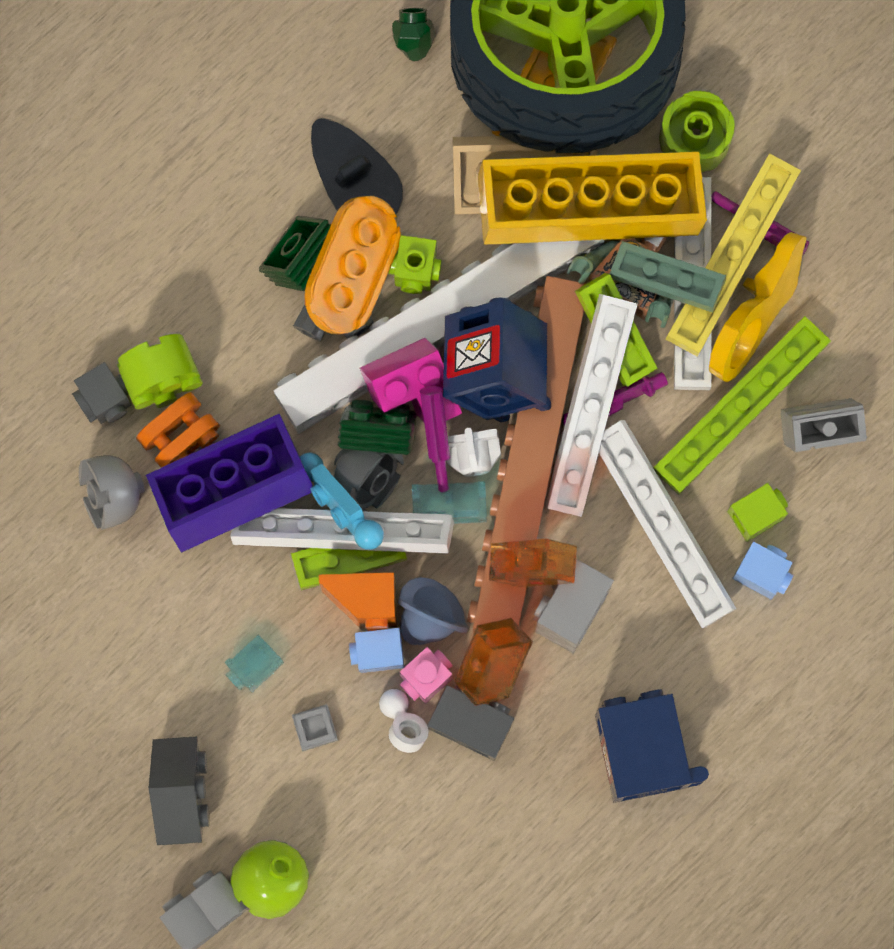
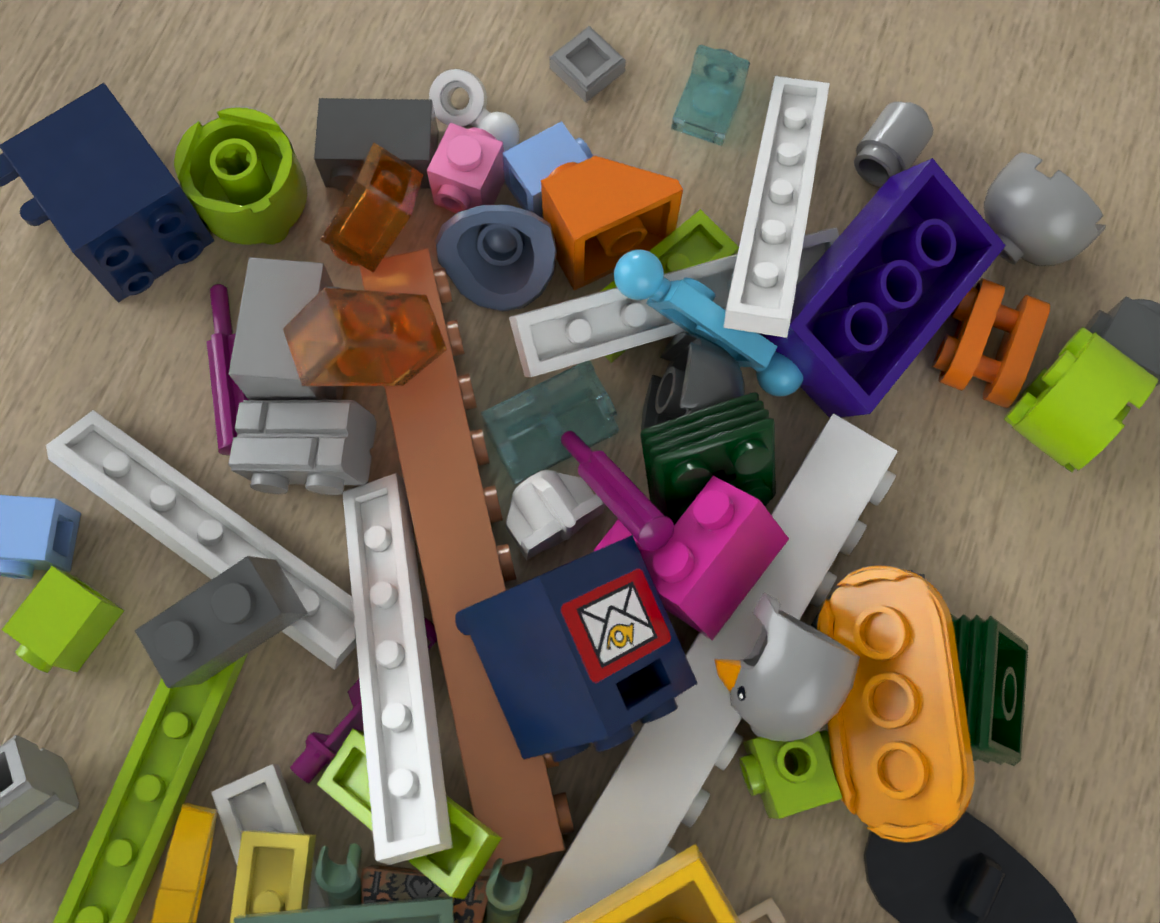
camera: 150 degrees right, 5 degrees down
(162, 579) = (893, 142): none -> light grey brick
(258, 559) = (777, 209): none -> white plate
(397, 298) = (790, 678): none -> light grey piece
(560, 709) = (242, 176): none -> lime brick
(596, 546) = (303, 443): none -> light grey brick
(619, 616) = (225, 391): none -> magenta axle
(669, 457) = (221, 622): none -> dark grey brick

